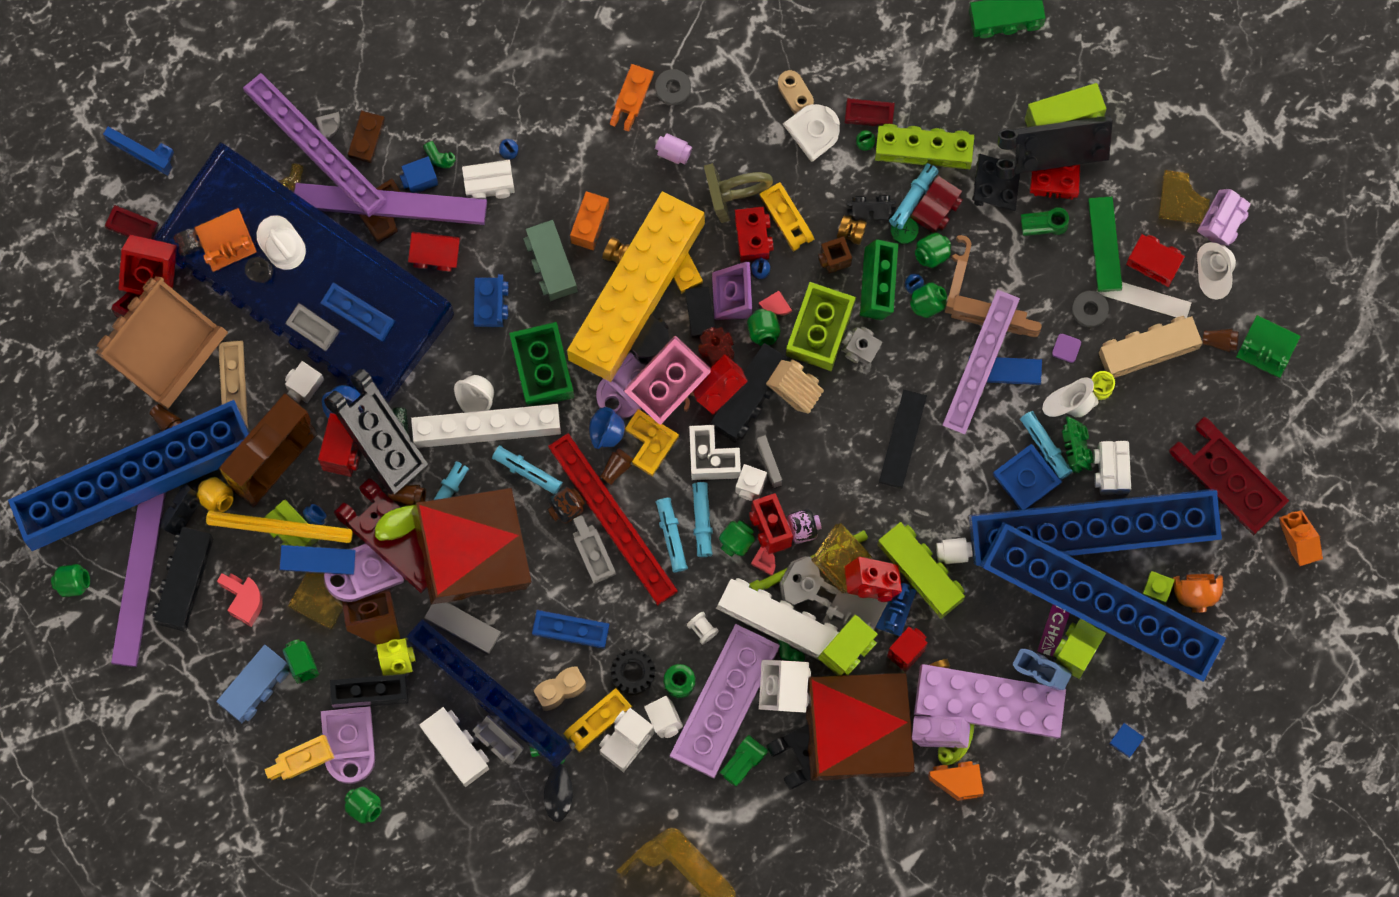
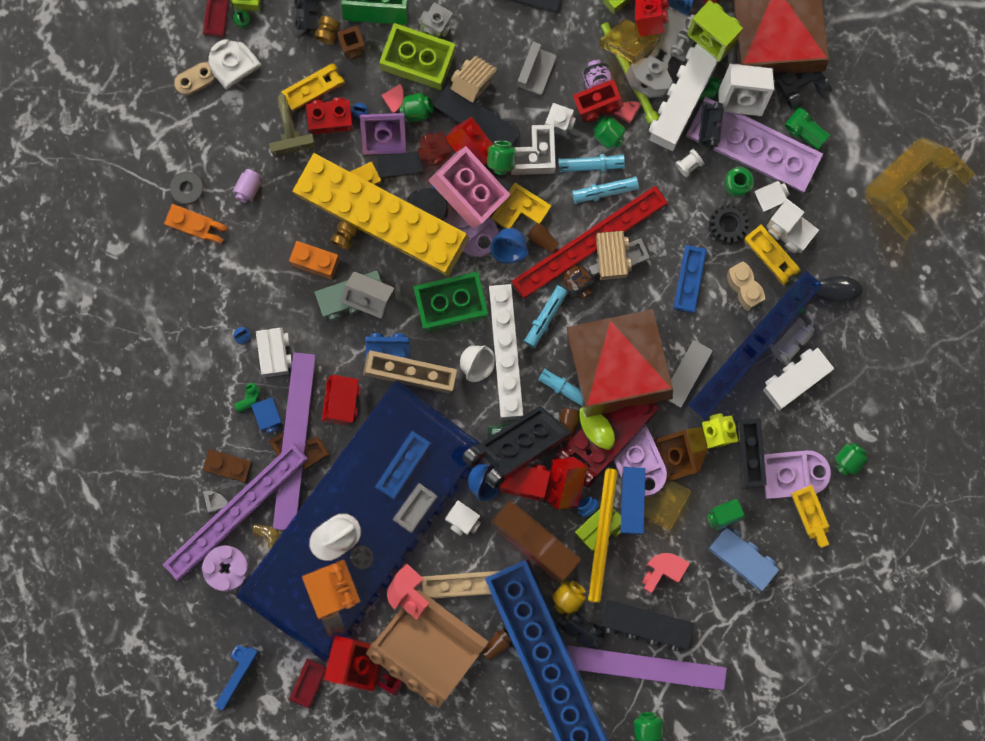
camera: 90 degrees left, 5 degrees up
(222, 317) = (403, 592): none -> coral brick
(254, 123) = (213, 568): none -> lavender brick
(337, 487) = (565, 483): none -> red brick
(462, 320) = (409, 372): none -> tan brick
(548, 273) = (366, 294): none -> light grey panel
(592, 538) = (612, 255): none -> tan brick
(700, 413) = (501, 157): none -> green head
(743, 645) = (710, 133): none -> black hinge
(769, 461) = (539, 104): light grey tile -> none
(811, 458) = (536, 69): none -> light grey panel

